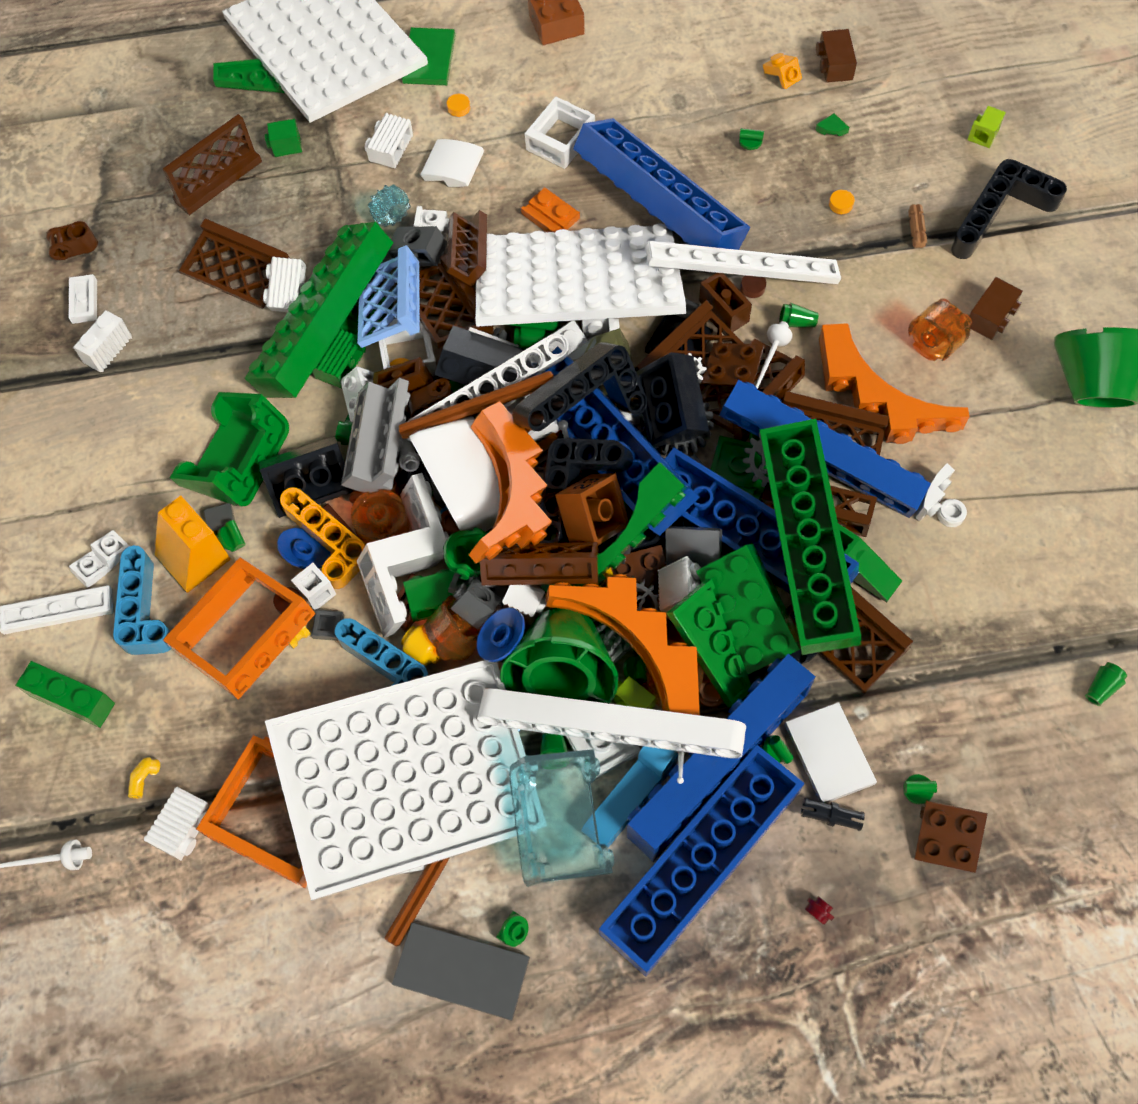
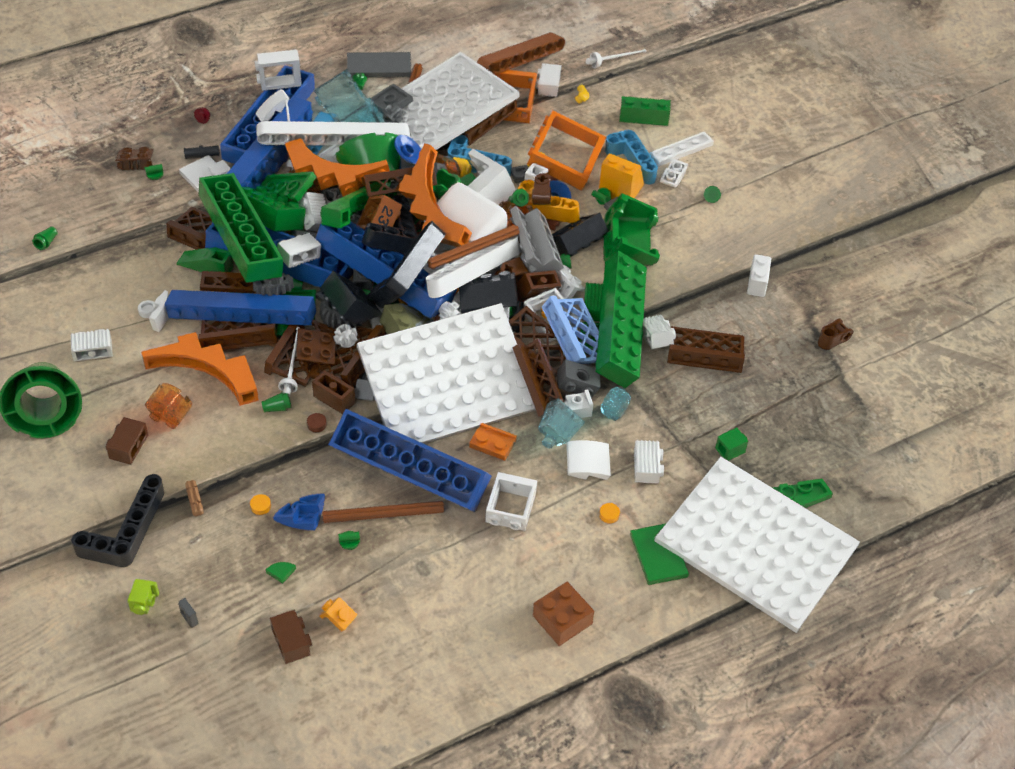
camera: 155 degrees right, 15 degrees down
(71, 501) = (712, 194): none -> green plate
(82, 298) = (795, 301): white plate -> none
(198, 888) = (522, 53): none -> dark orange beam
(219, 173) = (766, 402): reddish brown fence -> none
(325, 522) = (542, 191): none -> reddish brown piece
(363, 521) = (519, 197): none -> green plate
(468, 194) = (559, 424): none -> clear light blue torso
(479, 825) = (391, 95): none -> dark grey tile
(493, 764) = (392, 114): none -> dark grey gear
(669, 914) = (277, 59): none -> white window
(699, 823) = (272, 104): none -> white slope
(717, 163) = (383, 511): none -> dark orange axle
(727, 488) = (299, 249): none -> white brick
(742, 262) = (325, 412): white tile -> none
(796, 180) = (303, 513): none -> blue brick
(809, 751) = (219, 168): none -> white tile
(939, 100) = (188, 612): none -> dark grey tile
(1036, 460) = (91, 345): none -> white brick

